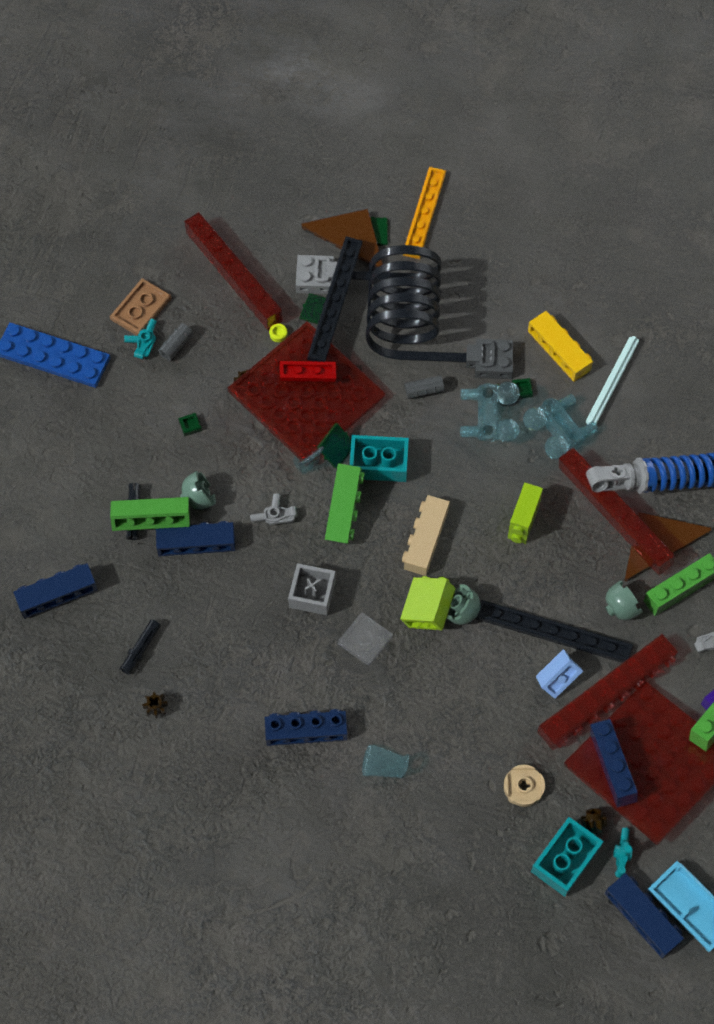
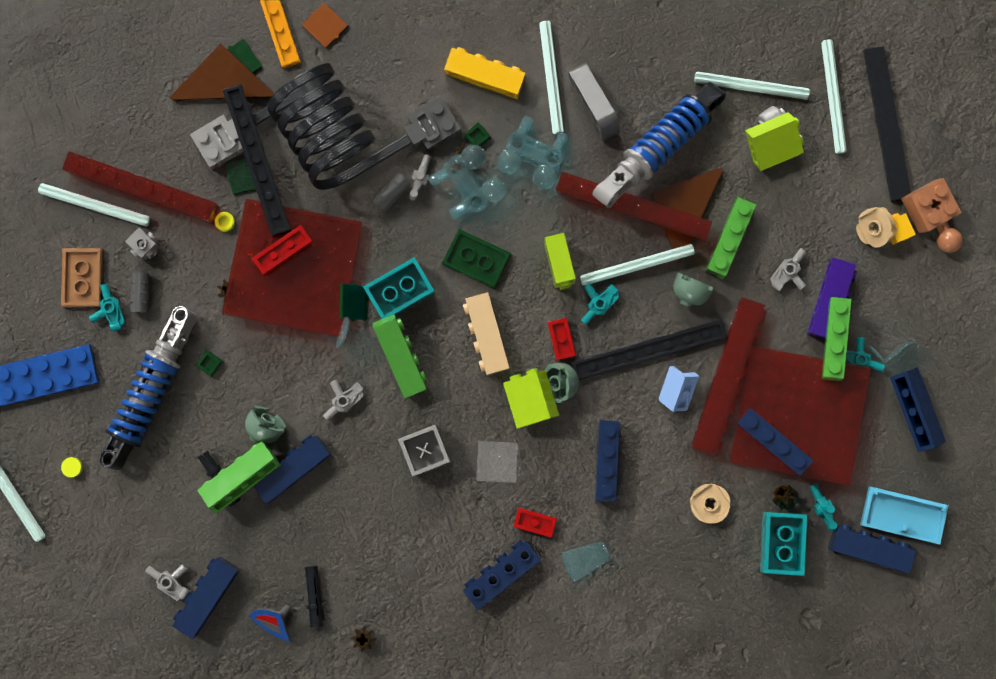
camera: 30 degrees left, 20 degrees up
(28, 433) = (72, 467): none -> neon yellow tile
(34, 562) = (168, 582): none -> light grey piece
(92, 641) = (272, 621): none -> shield
(123, 412) = (146, 393): none -> piece
(189, 263) = (93, 204): none -> light aqua axle
(204, 308) = (143, 244): none -> light grey brick
(363, 705) = (535, 522): none -> red plate
(453, 389) = (420, 177): none -> light grey piece
(457, 244) = (324, 25): none -> dark orange piece
(458, 476) = (476, 258): none -> dark green tile
(458, 693) = (607, 460): none -> dark blue brick
(485, 576) = (561, 339): none -> red plate
(537, 569) = (601, 303): none -> teal piece
(589, 558) = (637, 264): none -> light aqua axle
(635, 417) = (595, 101): none -> beam

